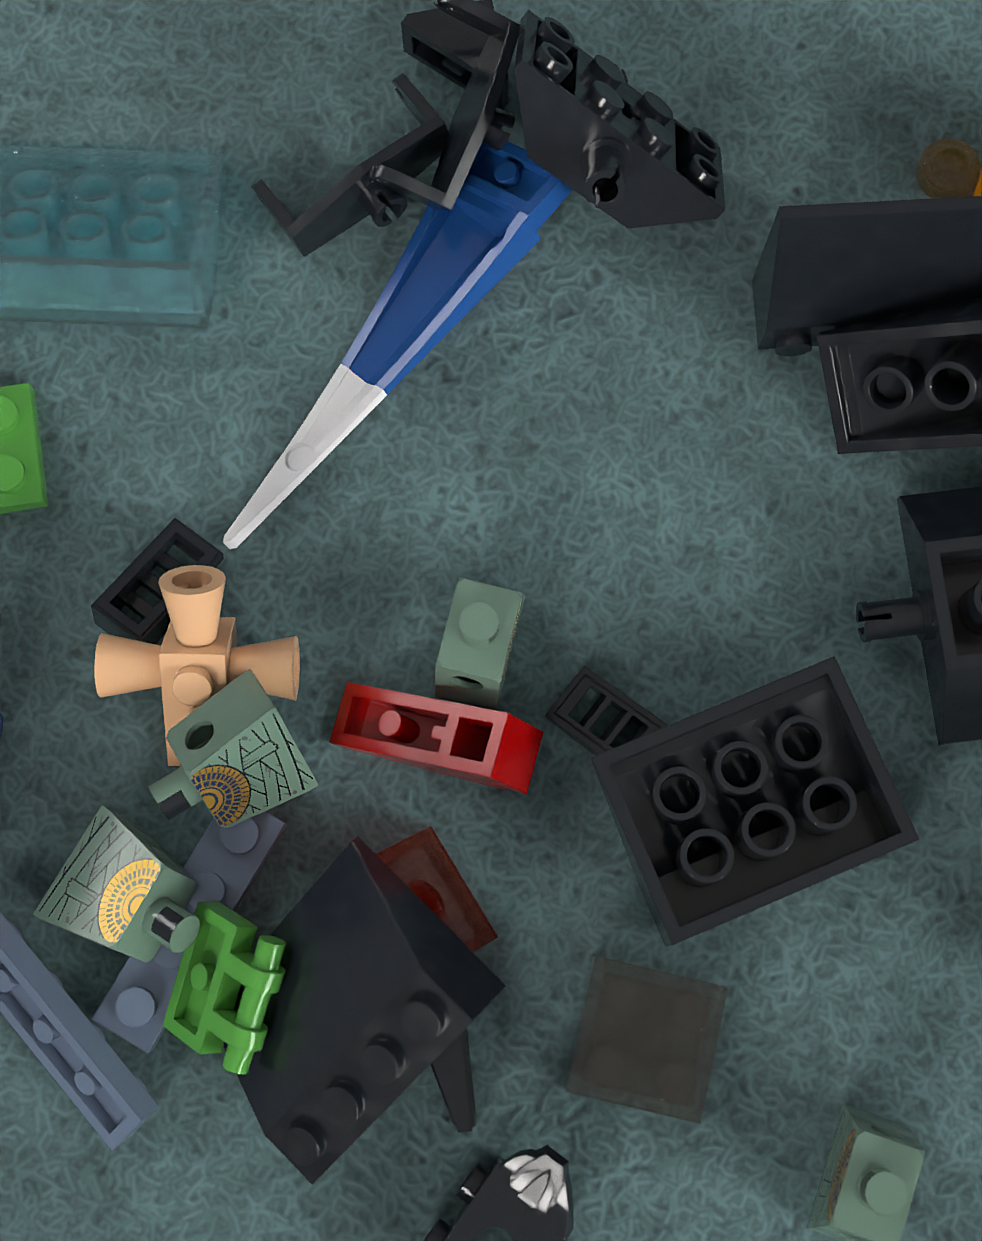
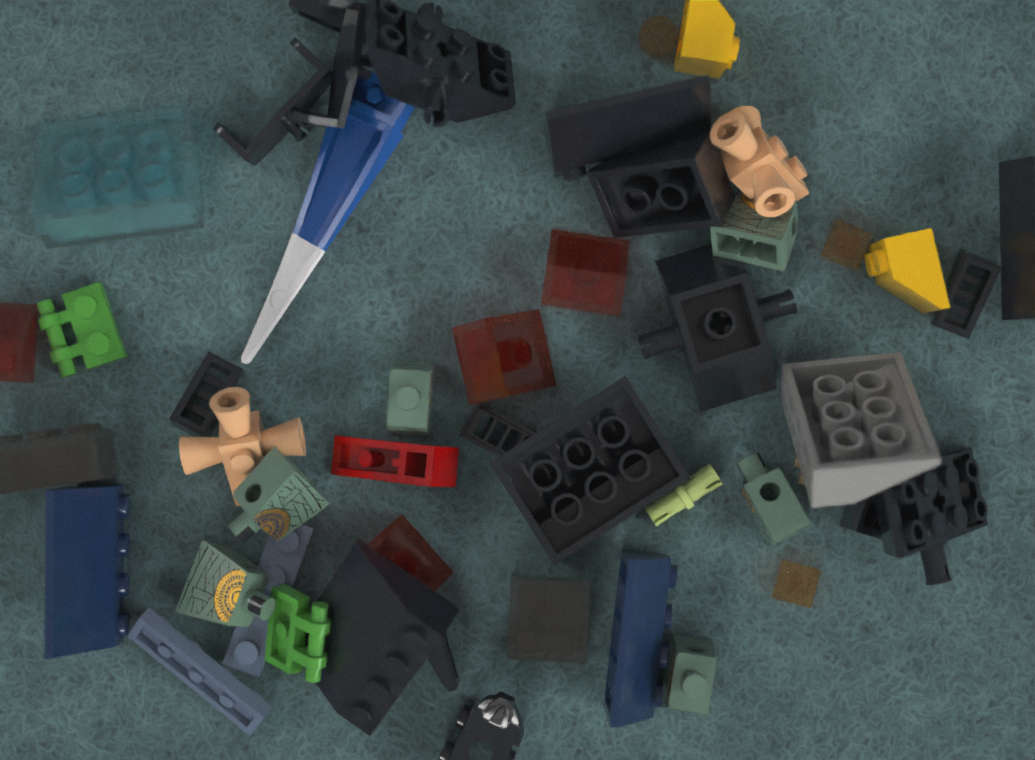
camera: 10 degrees left, 10 degrees up
(637, 600) = (503, 356): none -> clear red slope
(786, 501) = (585, 273): none -> clear red slope
(789, 1093) = (637, 637): none -> dark blue slope
(894, 873) = (684, 495): none -> yellowish green pin

